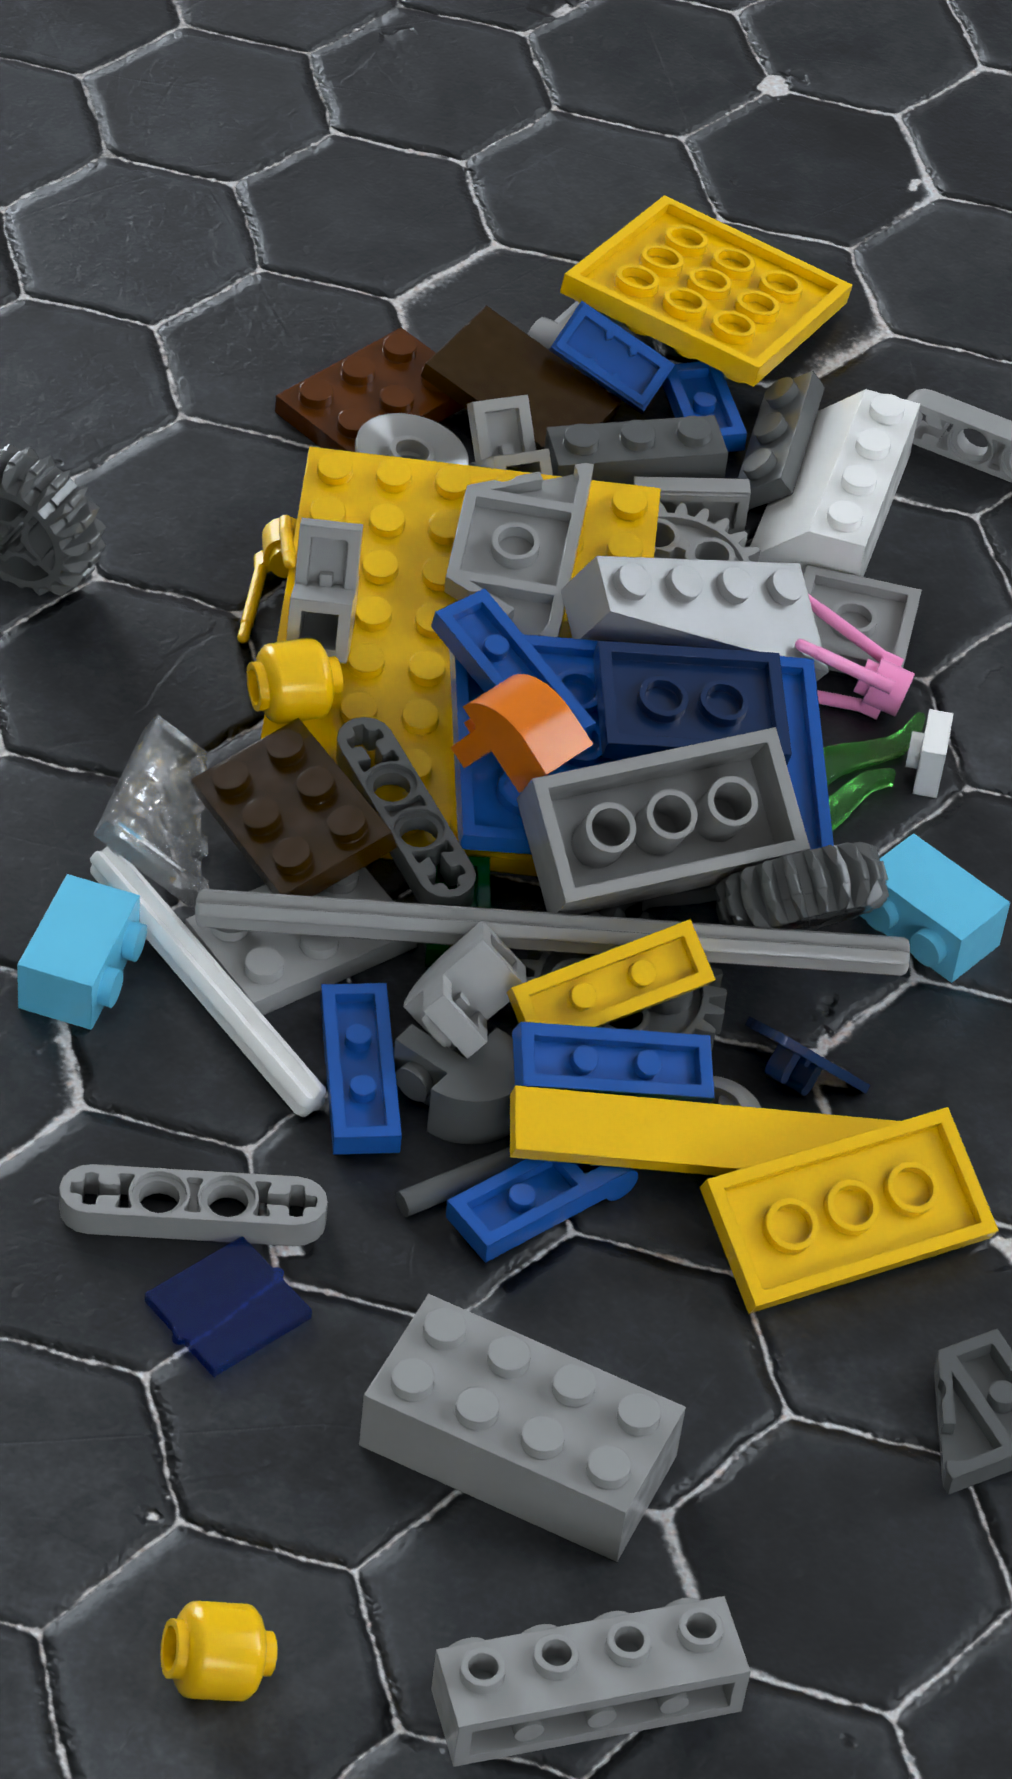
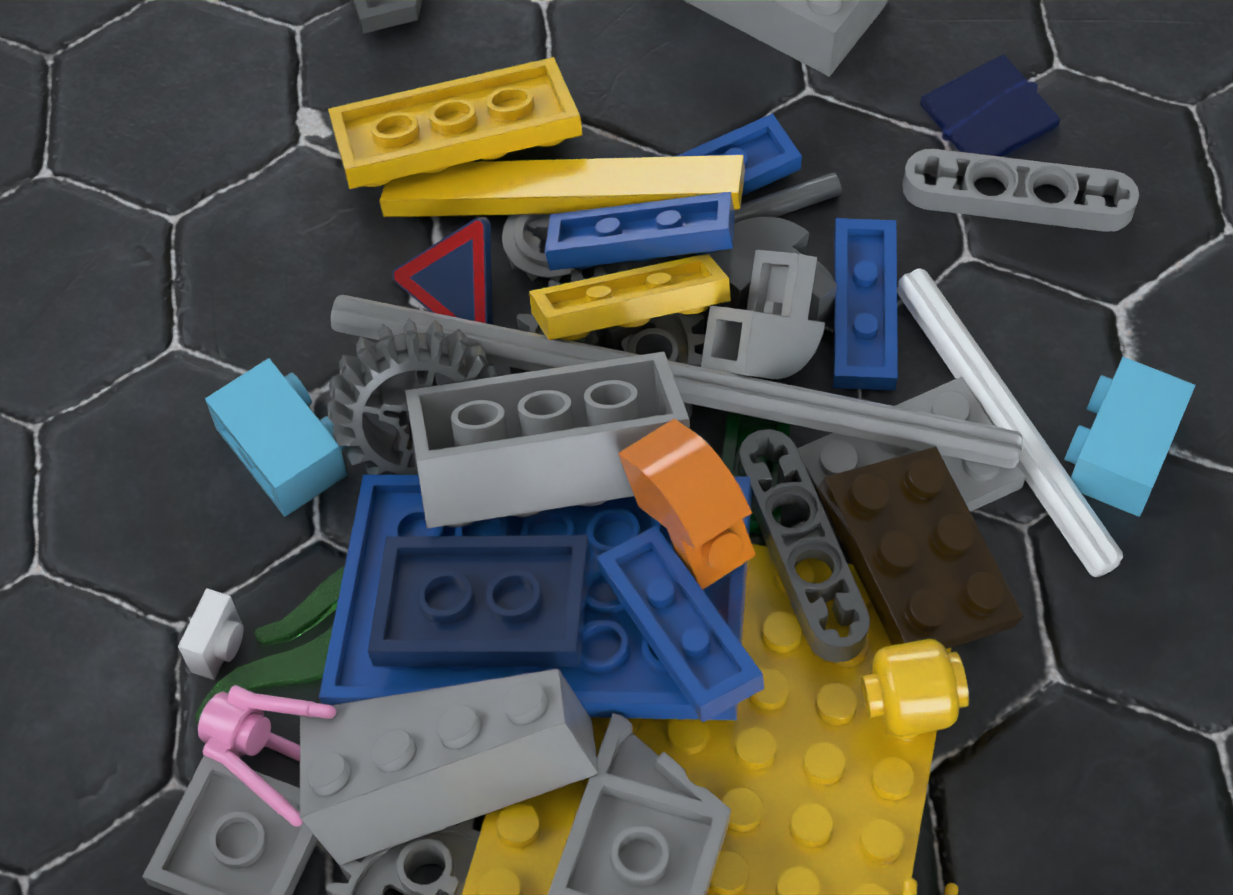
camera: 165 degrees left, 15 degrees up
(157, 814) = (1061, 581): clear wing -> none
(326, 585) = (878, 784): light grey brick -> none

